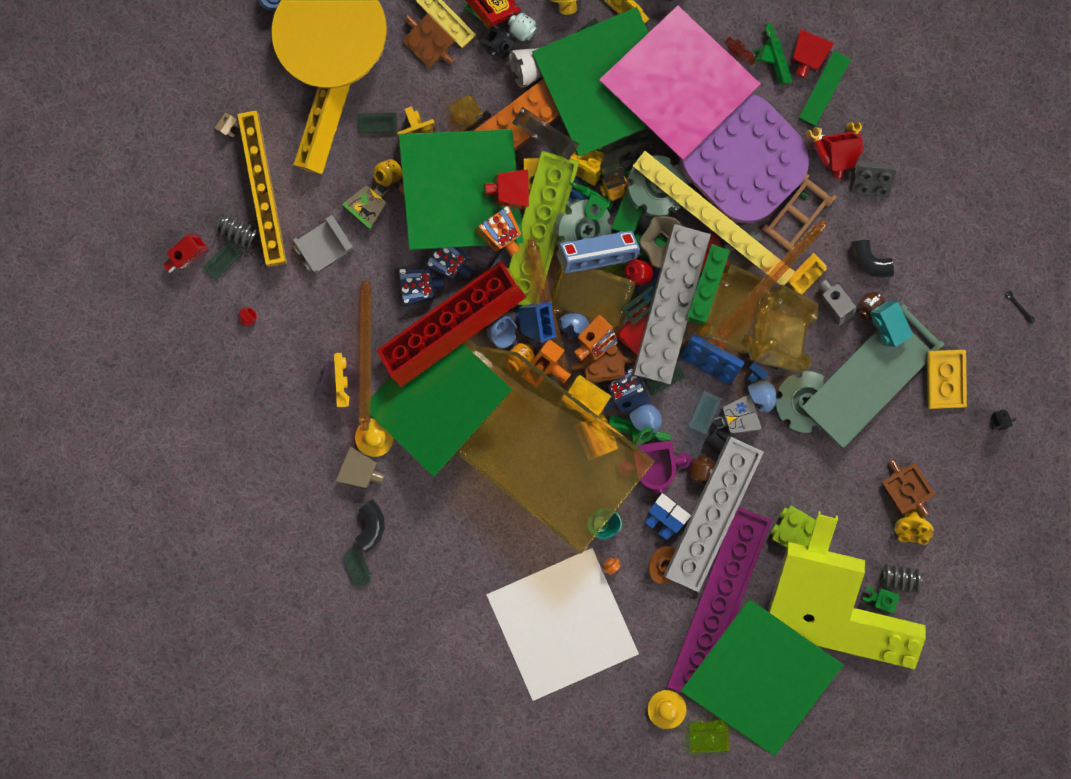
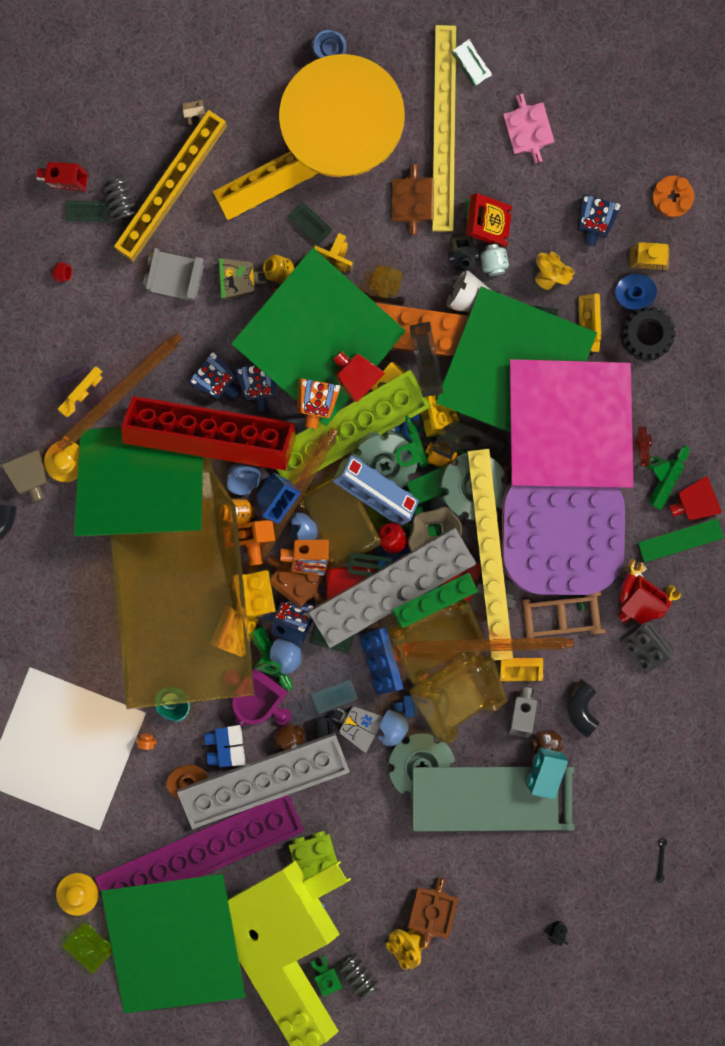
camera: 45 degrees right, 0 degrees up
(946, 379) = (548, 858): yellow tile -> none

